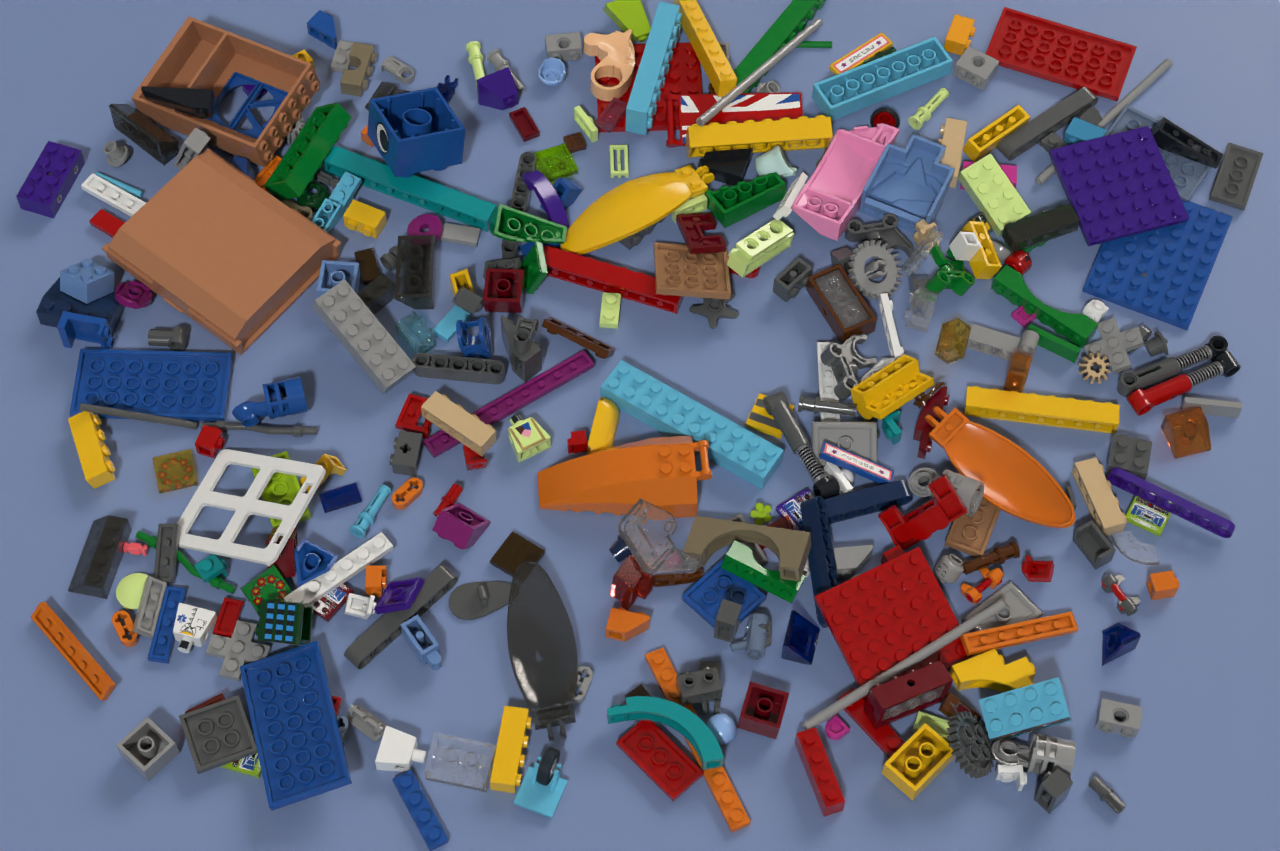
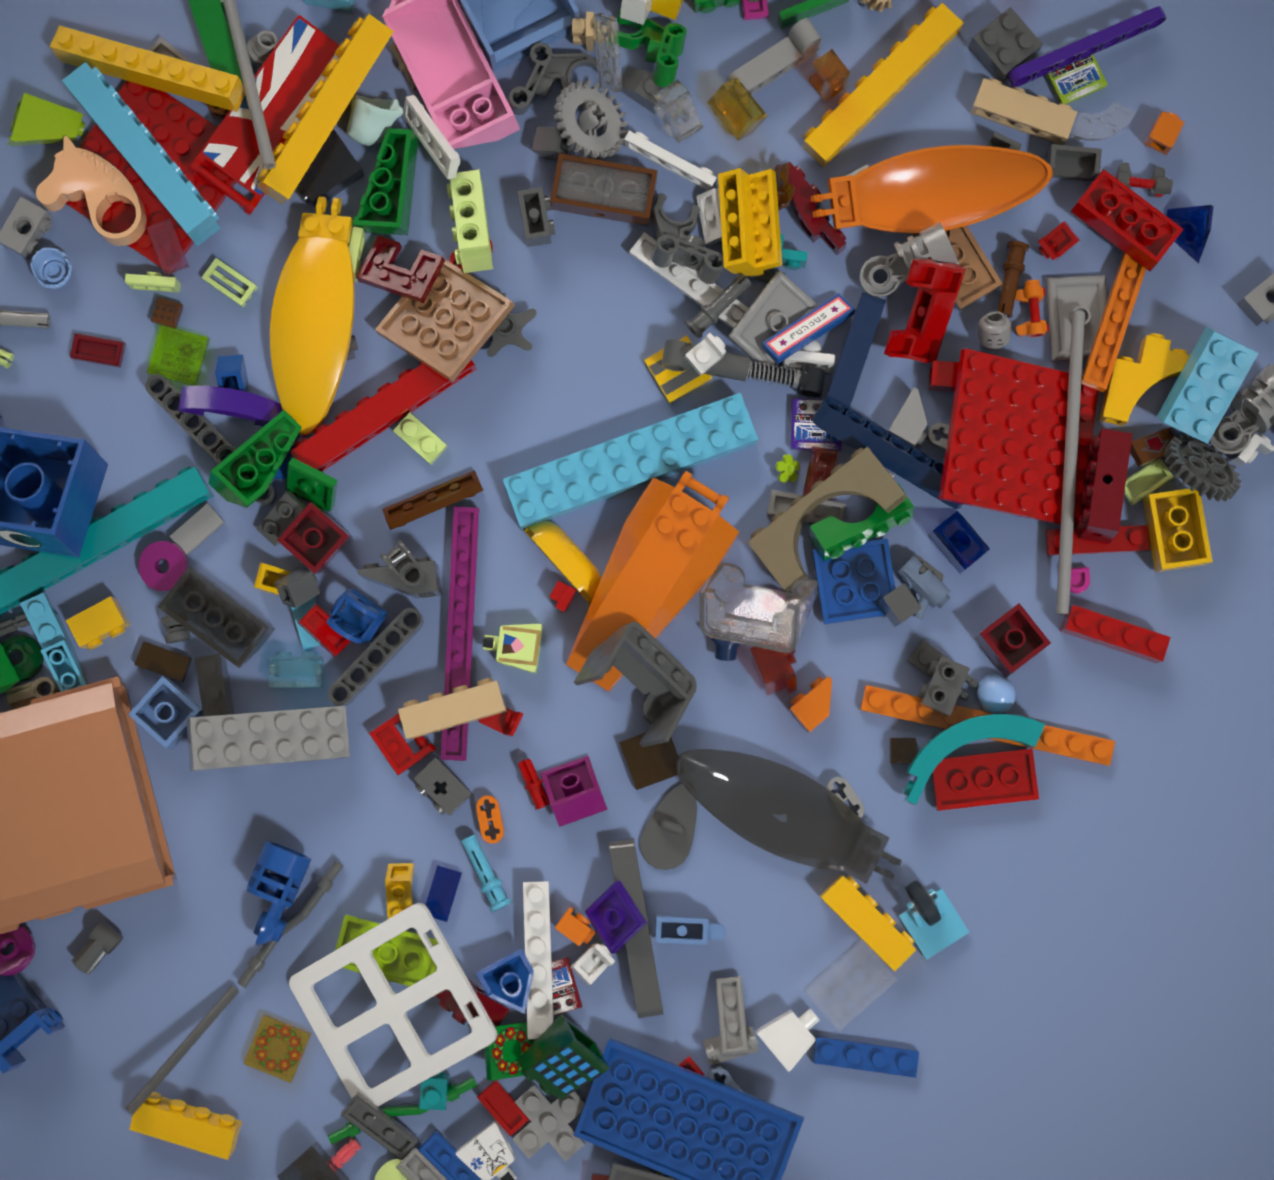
camera: 50 degrees left, 25 degrees up
(154, 383) = (146, 1004): blue plate -> none
(210, 441) = (270, 988): red brick -> none
(386, 706) = (732, 1016): none -> light grey tile
(449, 339) = (315, 624): none -> red tile
(497, 90) = (34, 349): dark purple slope -> none
(571, 507) = (651, 670): none -> dark grey windscreen
(789, 413) = (706, 354): none -> white bracket
(1086, 597) = (1127, 220): none -> red slope

